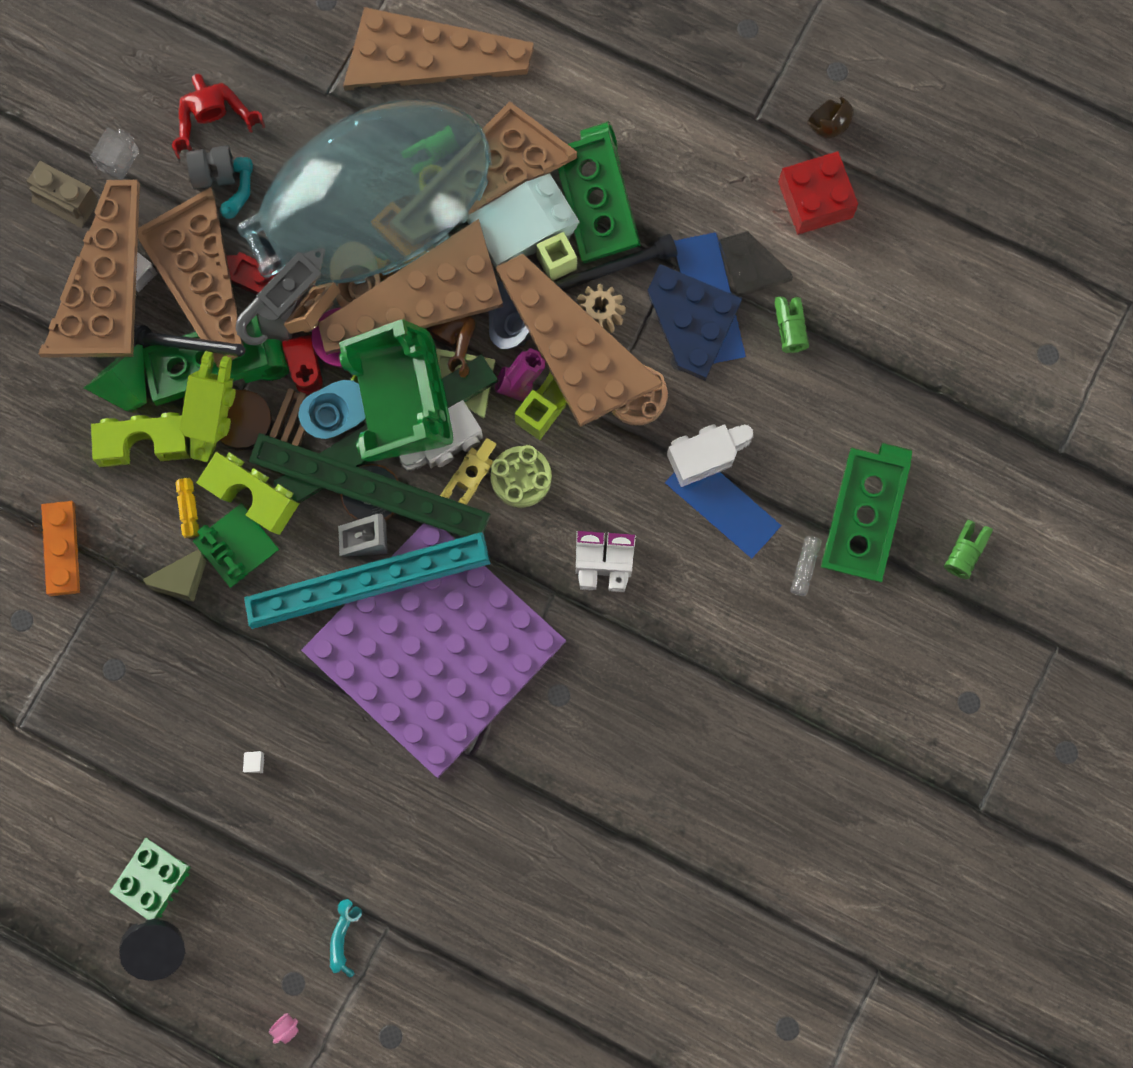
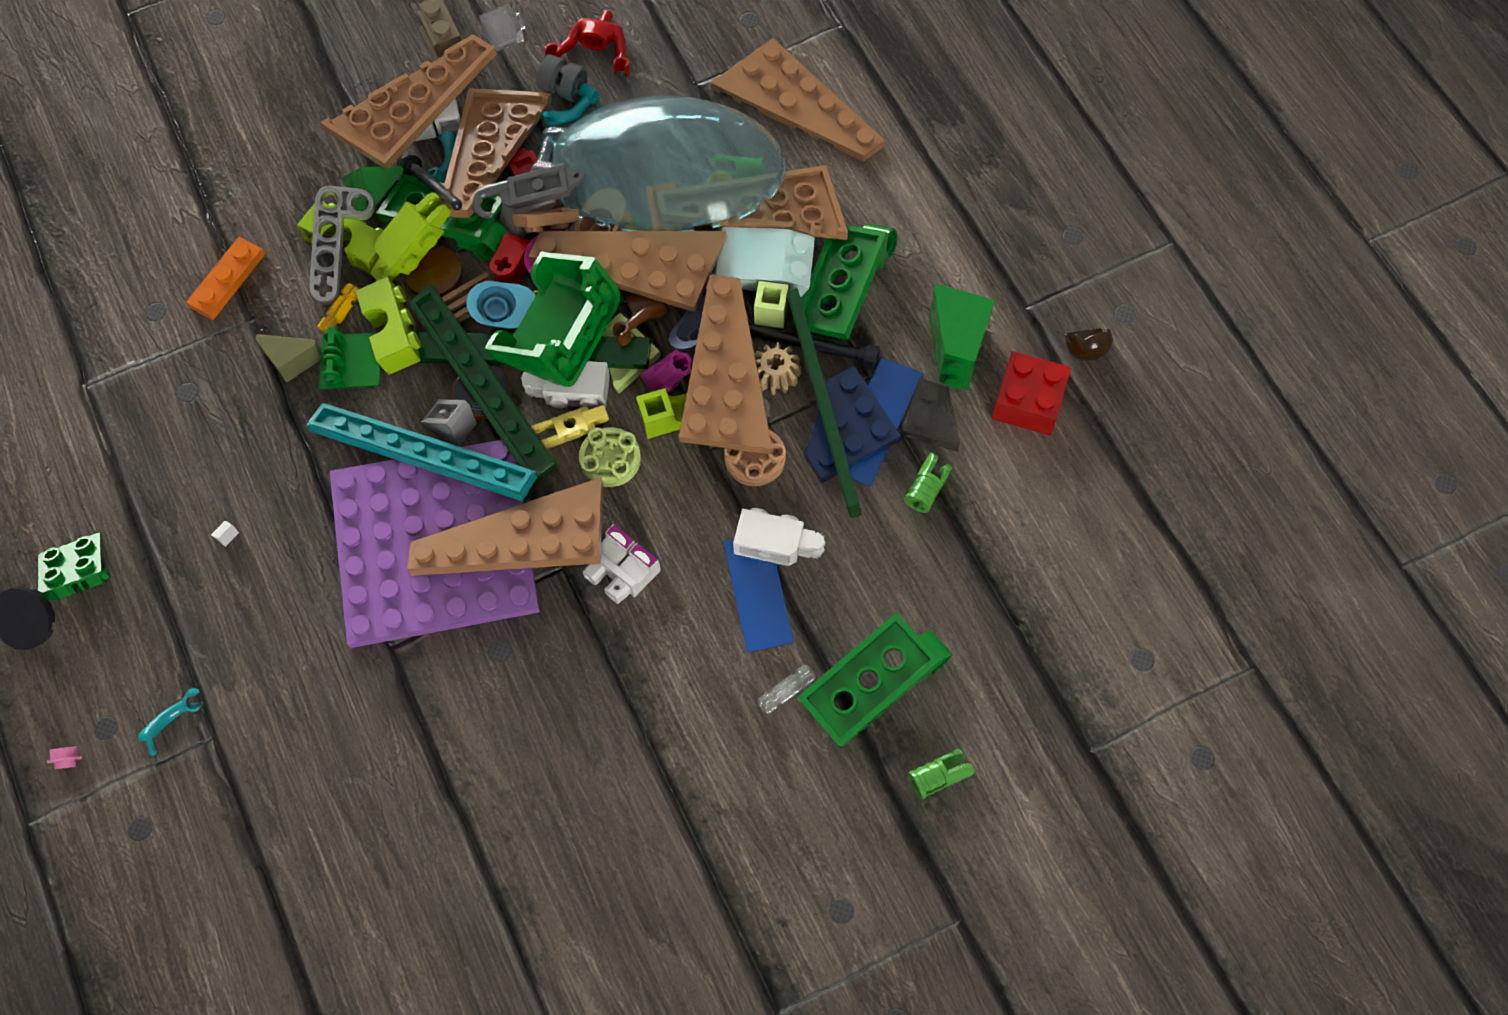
camera: 40 degrees right, 10 degrees down
(145, 456) = (333, 245): none -> light grey beam
(157, 293) = (448, 140): none -> teal piece
(521, 583) = (536, 534): none -> medium nougat wing
(665, 313) = (824, 404): none -> dark green tile
(728, 182) = (958, 332): none -> green slope

